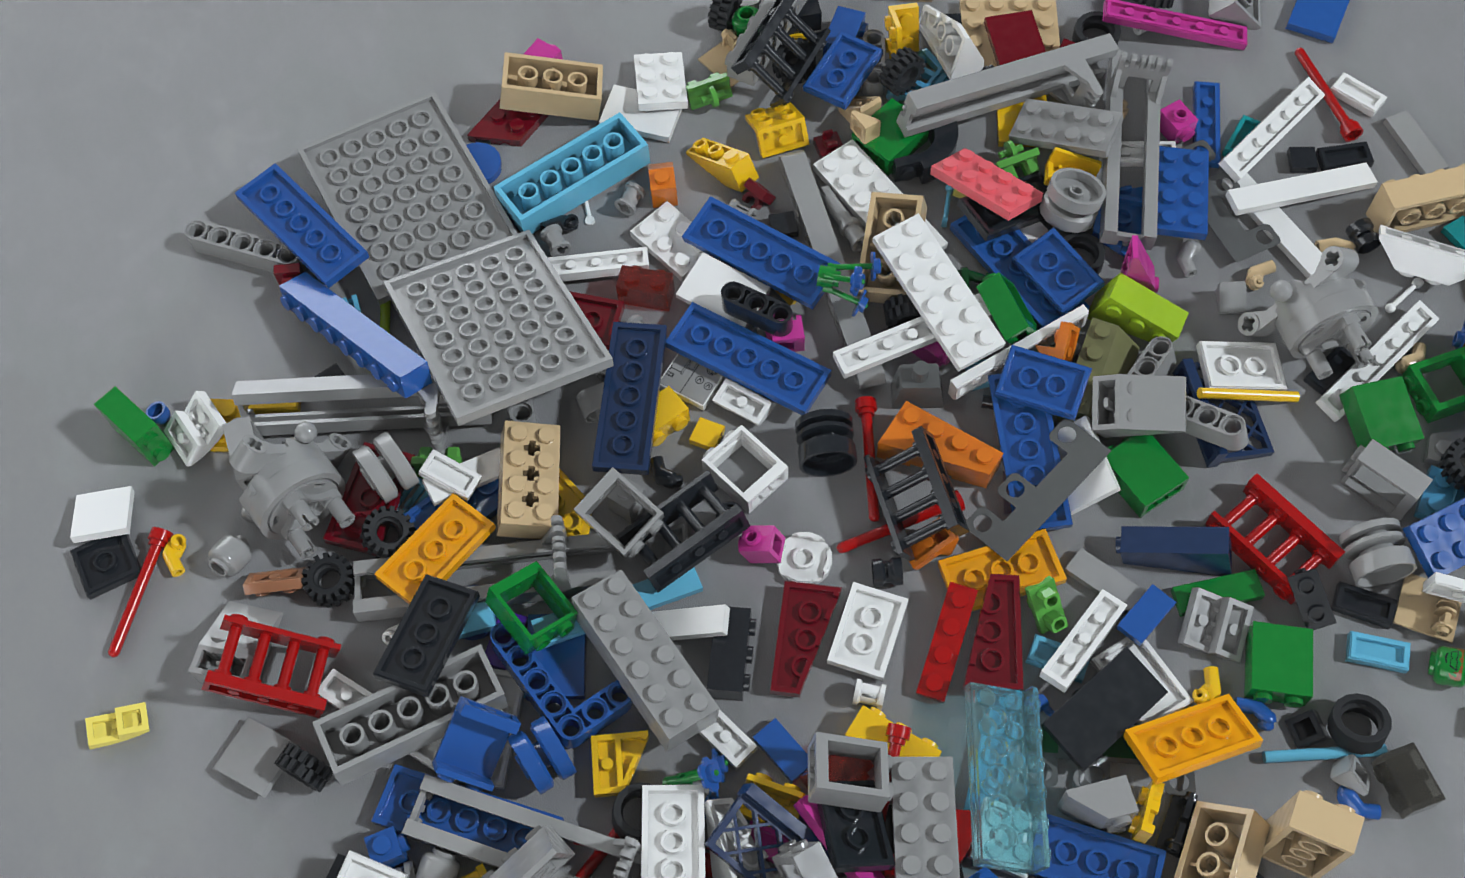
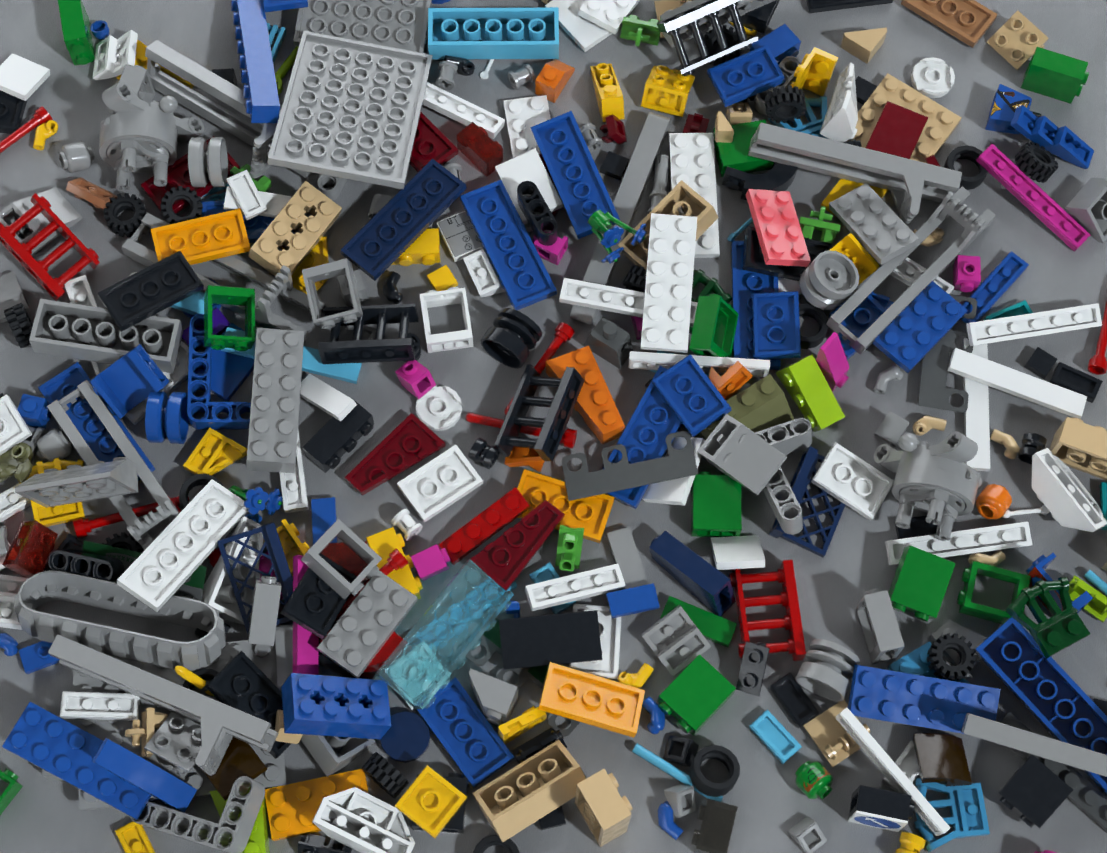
camera: 30 degrees right, 5 degrees up
(926, 714) = (431, 562): none -> dark pink brick
(1202, 501) = (737, 552): none -> white tile
(1247, 394) = (838, 503): yellow bar -> none
(1383, 300) = (993, 501): none -> orange head

